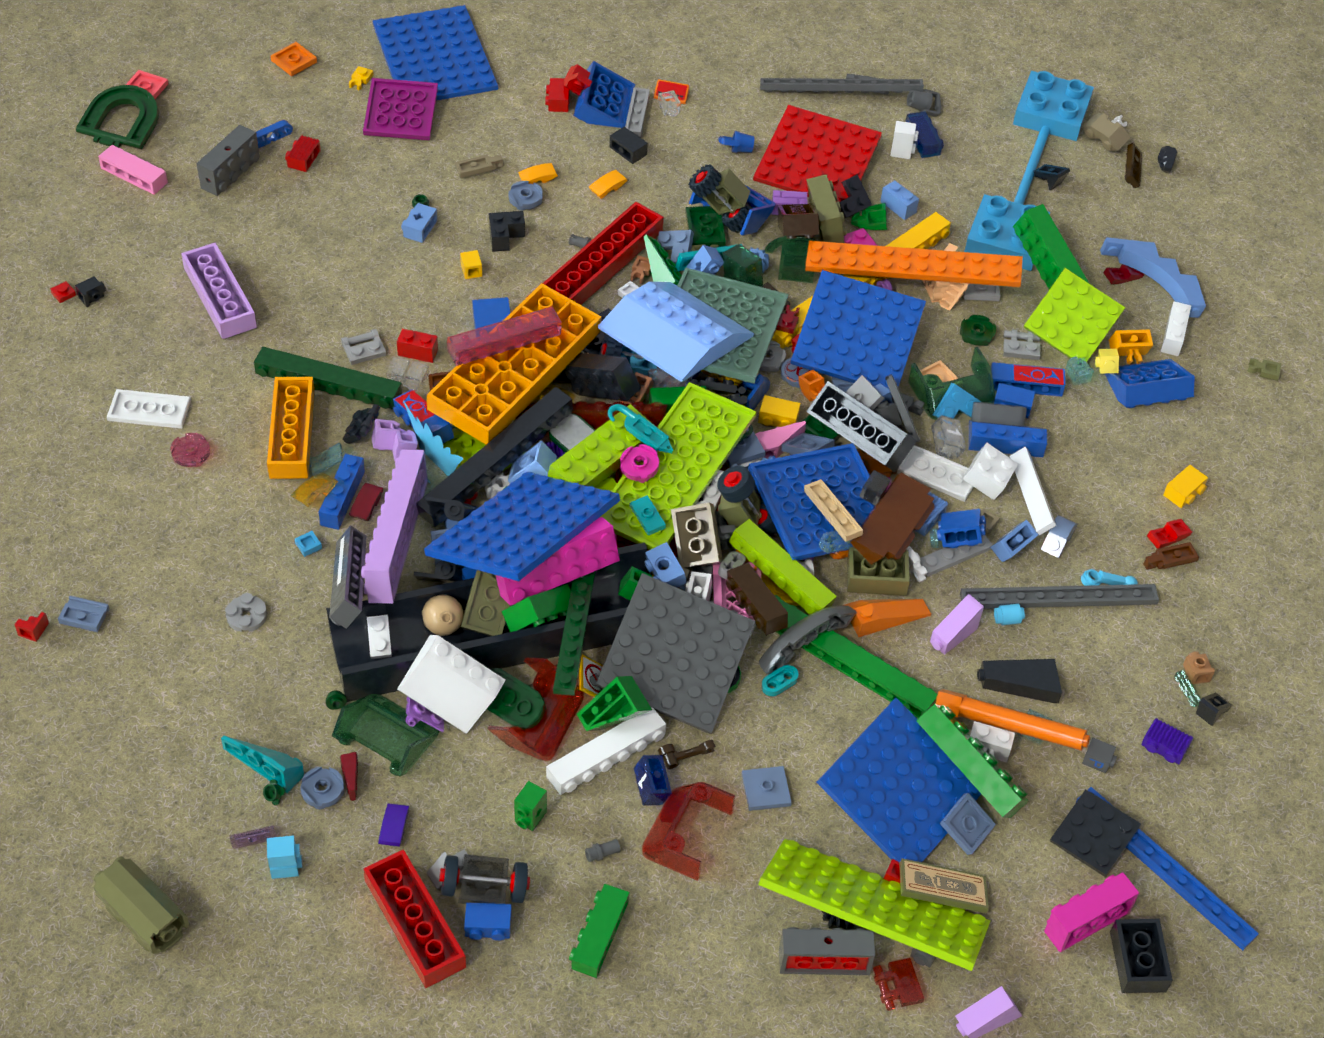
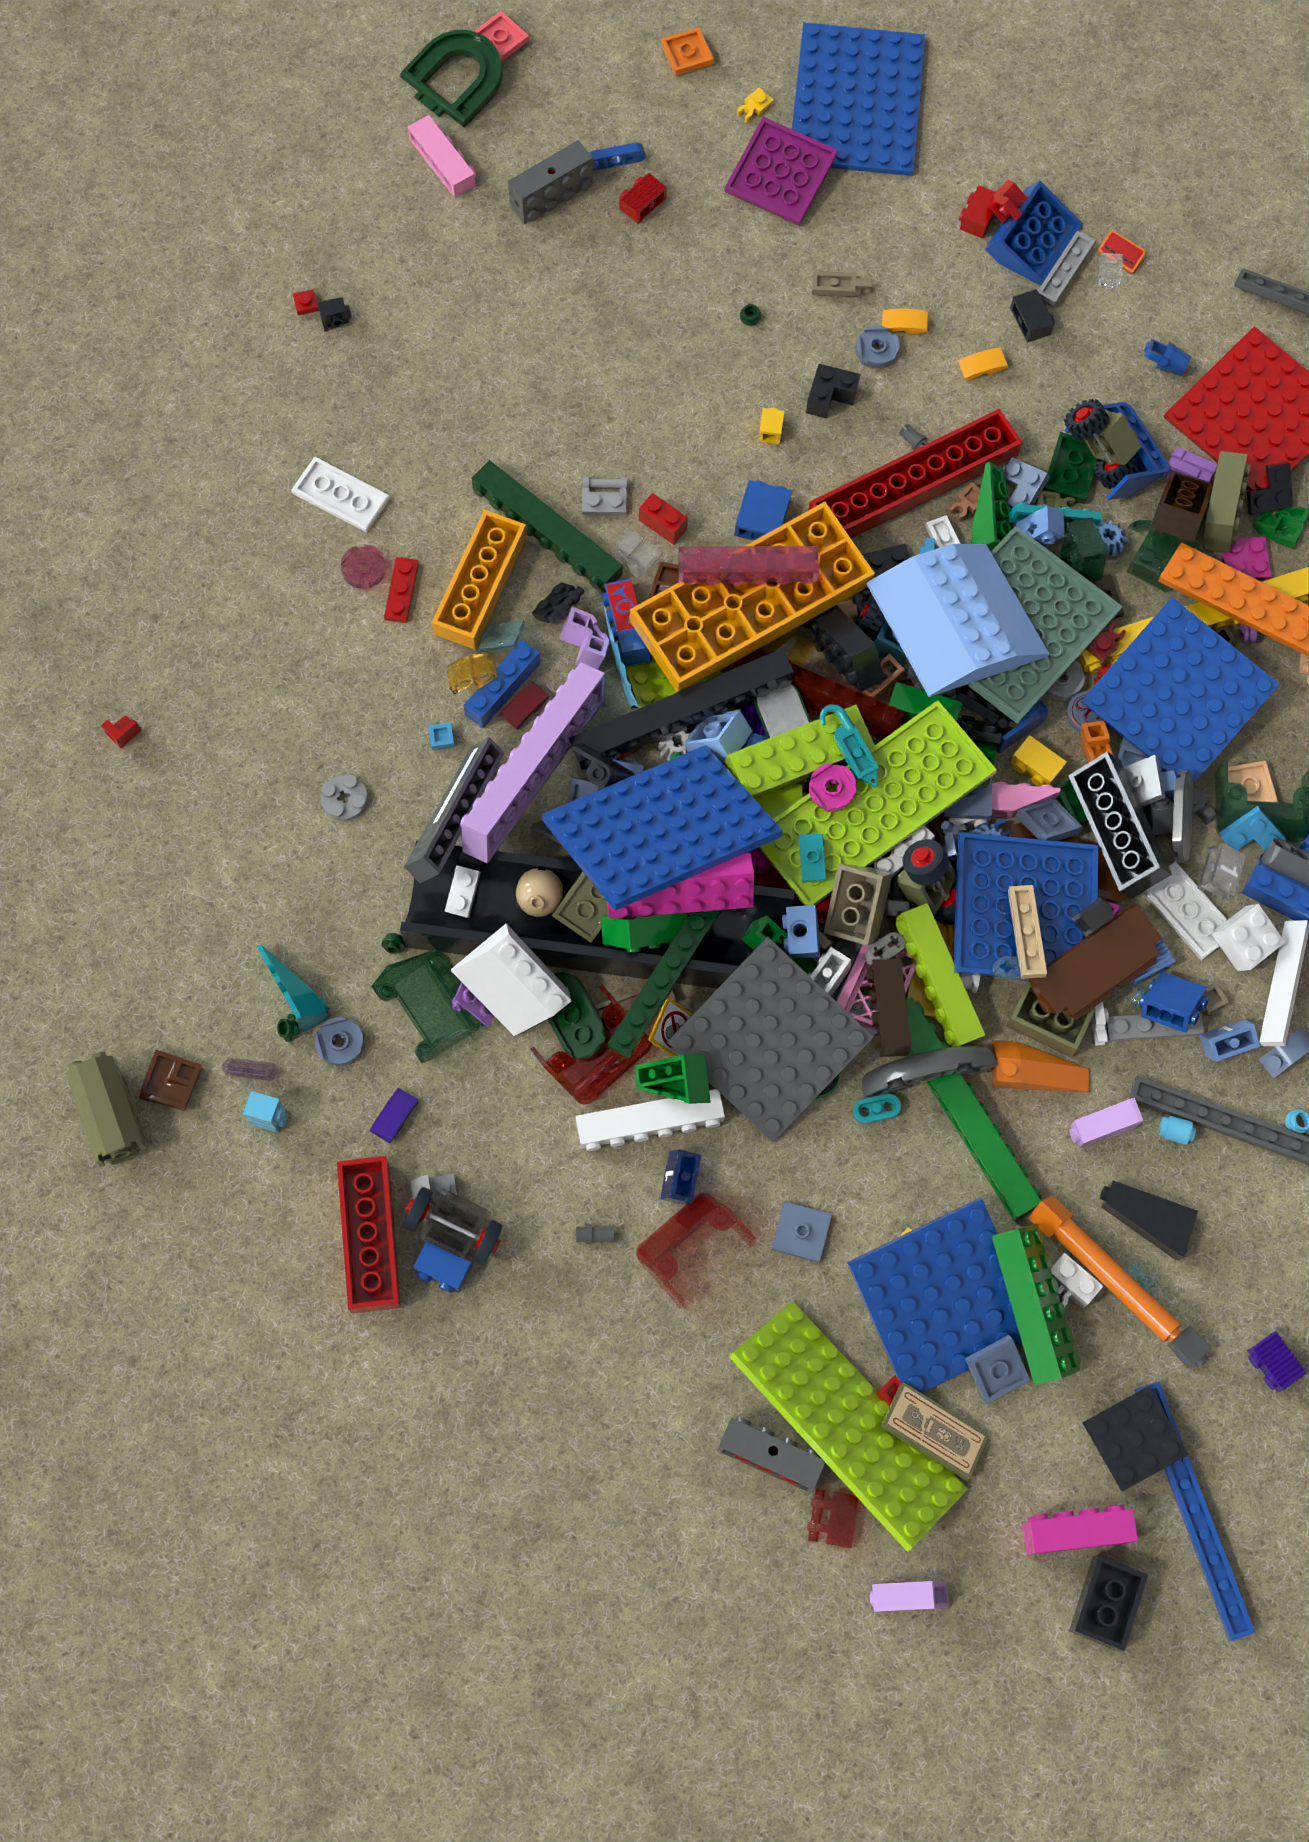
camera: 25 degrees right, 20 degrees up
(83, 614) = (177, 735): sand blue plate -> none
(186, 868) = (170, 1080): none -> reddish brown plate
(219, 290) = (471, 363): lavender brick -> none
(228, 456) = (401, 590): none -> red plate
(349, 767) = (374, 1035): dark red slope -> none
(419, 222) = (736, 345): medium blue brick -> none
(530, 806) = (537, 1157): green brick -> none
(599, 931) = (551, 1326): green brick -> none
(672, 757) = (716, 1154): dark brown brick -> none

